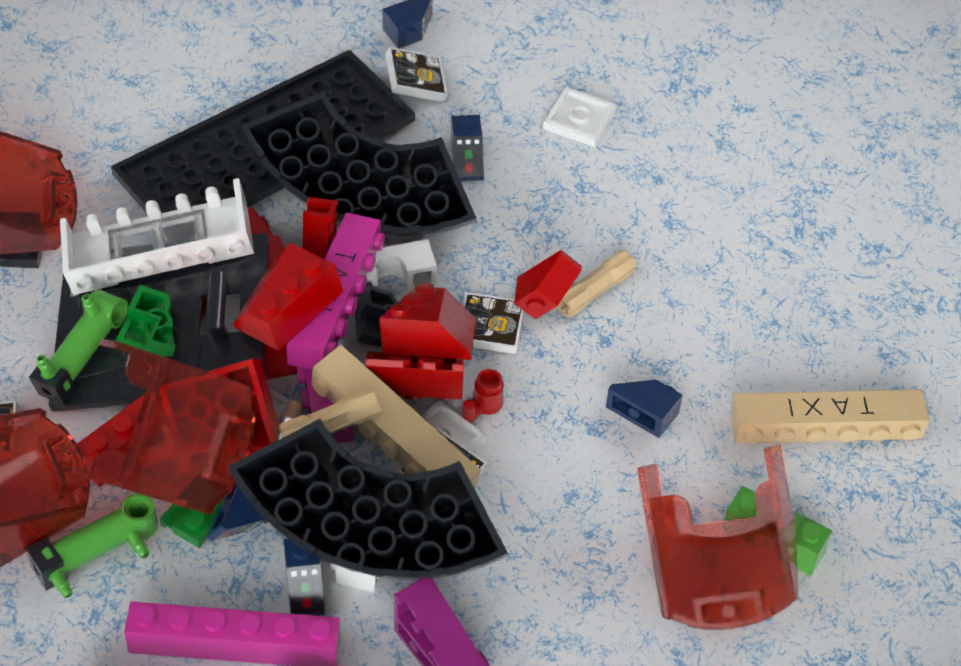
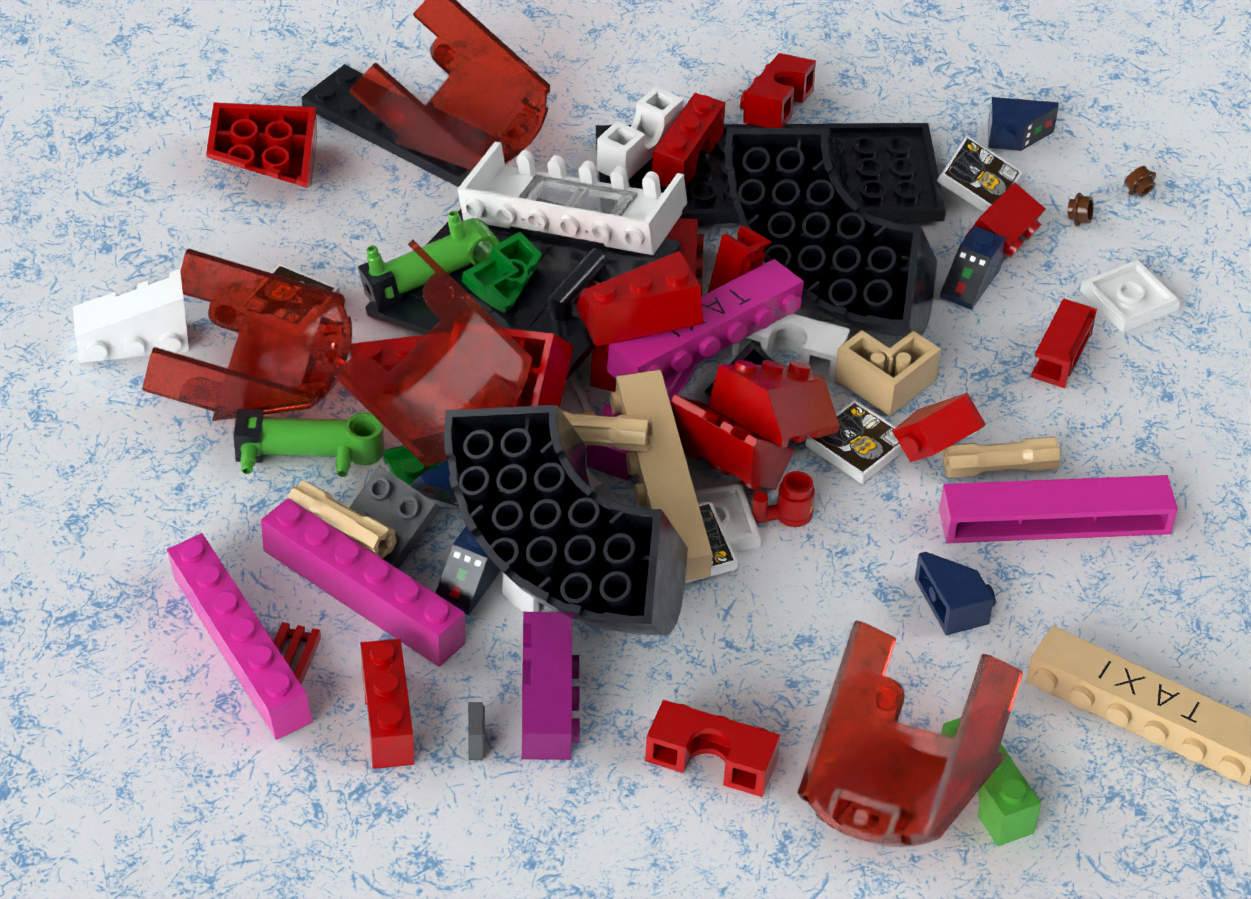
camera: 35 degrees right, 5 degrees down
(162, 159) = (634, 145): none -> white arch
(199, 147) = (695, 129): none -> red arch
(208, 594) = (362, 529): none -> tan axle
(212, 572) = (398, 507): none -> dark grey plate
(226, 74) = (772, 93): none -> red arch
(463, 96) = (1012, 217): none -> red brick
(473, 262) = (884, 374): none -> tan brick
(500, 66) = (1081, 209): none -> reddish brown plate
(523, 26) = (1140, 181): none -> reddish brown plate
(569, 175) = (1063, 342): none -> red window
(608, 606) = (684, 732): none -> red arch
(660, 303) = (1057, 509): none -> dark pink brick

